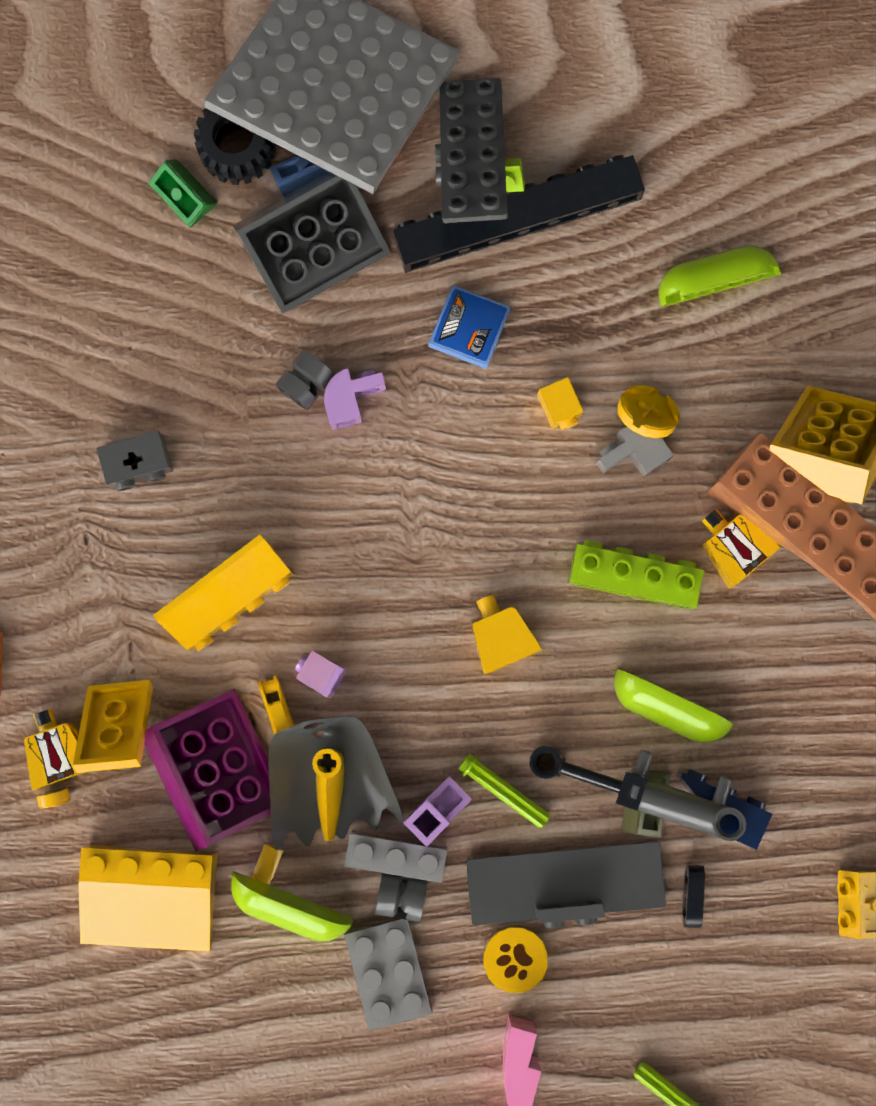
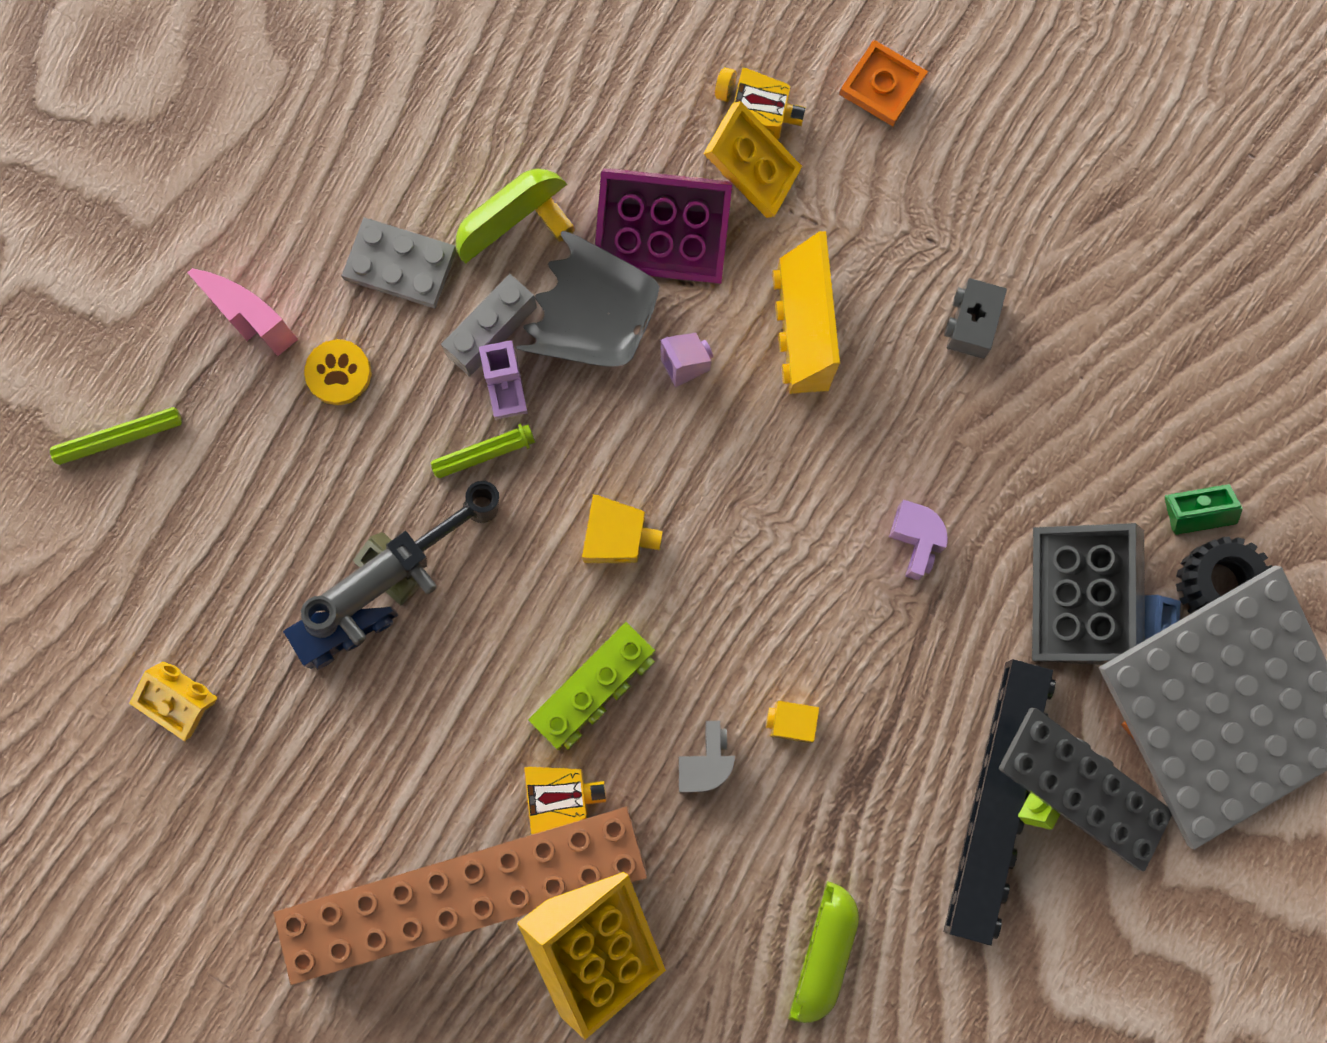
camera: 120 degrees right, 5 degrees down
(147, 897) = (595, 110): yellow slope -> none
(277, 711) = (678, 306): yellow bar -> none
(304, 380) = (958, 505): dark grey wheel -> none
(329, 790) = (585, 308): yellow piece -> none
(401, 897) = (452, 308): dark grey wheel -> none
(469, 327) = (918, 686): slope -> none
(566, 884) = (368, 453): dark grey bracket -> none
(648, 412) = (734, 797): yellow tile -> none
(669, 709) = (455, 641): lime brick -> none
(693, 896) = (283, 554): black beam -> none

